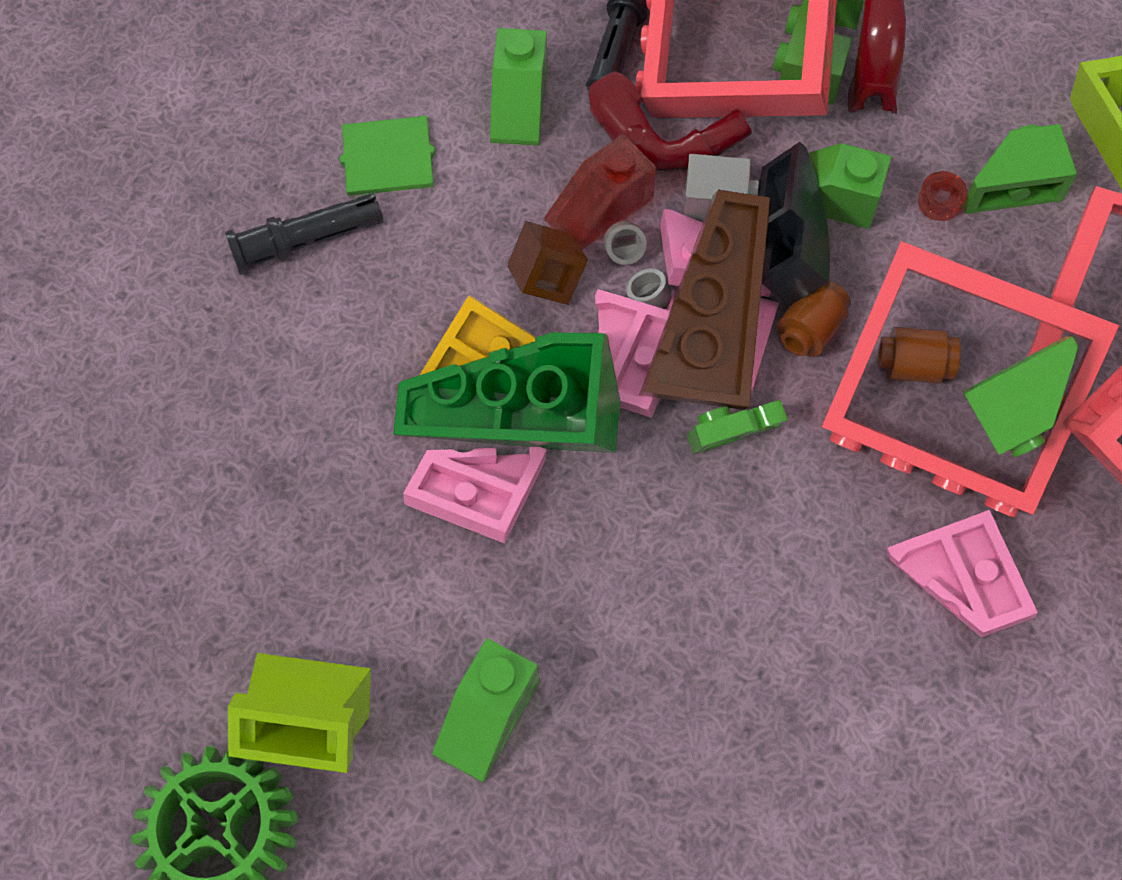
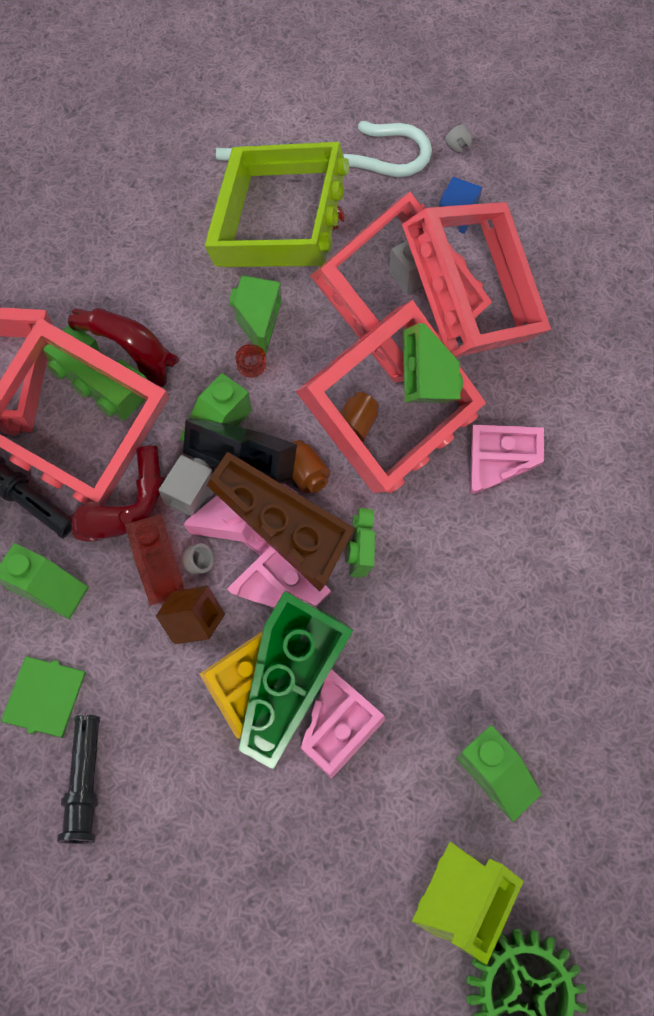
camera: 70 degrees left, 0 degrees up
(650, 288) = (236, 556): light grey hinge -> none

